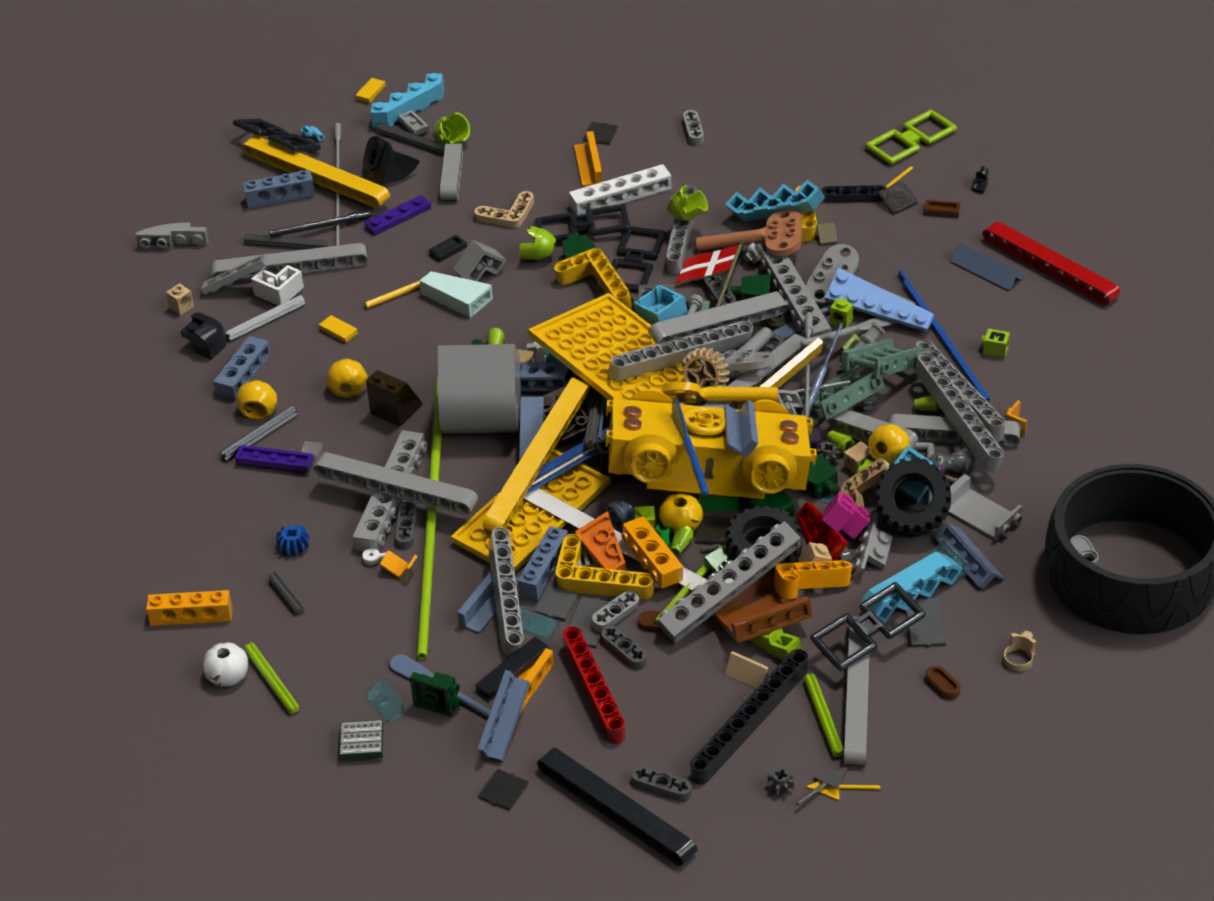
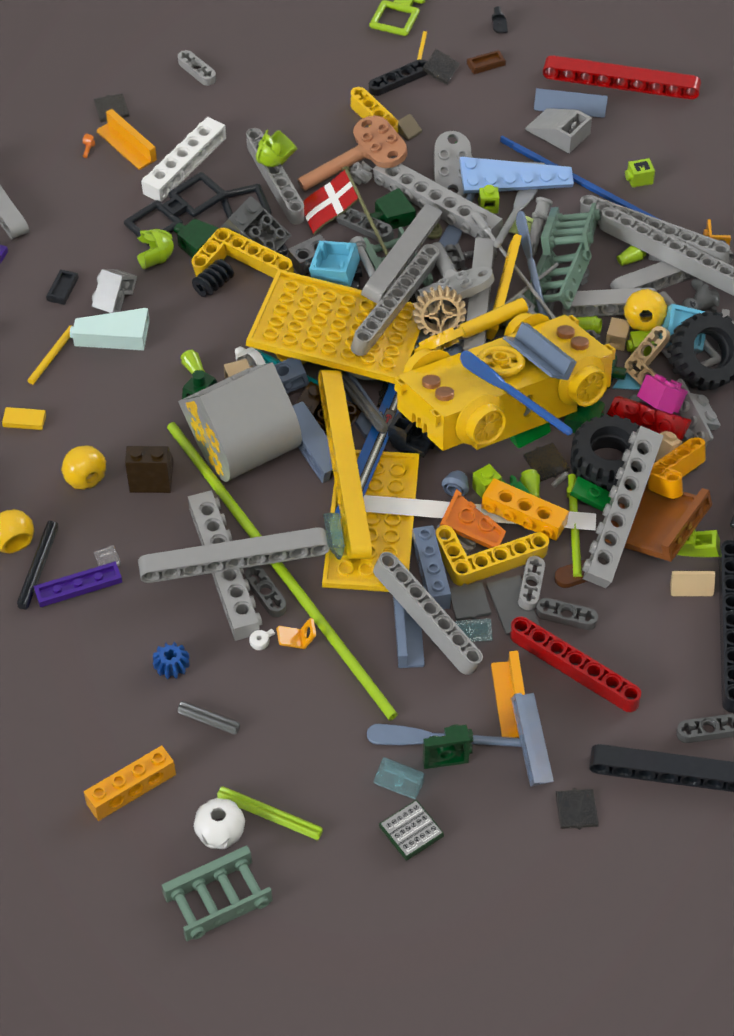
camera: 35 degrees left, 10 degrees up
(184, 695) = (216, 870): none -> sand green fence
(483, 502) = (334, 534): none -> clear light blue slope
(487, 214) = (95, 230): tan beam -> none
(516, 663) = (486, 685): black tile -> none
(559, 151) = (90, 142): none -> orange hand
(564, 283) = (212, 277): none -> black piece
(628, 259) = (258, 225): none -> dark grey slope
(680, 511) = (513, 458): yellow piece -> none
(763, 205) = (341, 120): medium azure brick -> none
(958, 283) = (561, 127): none -> light grey slope

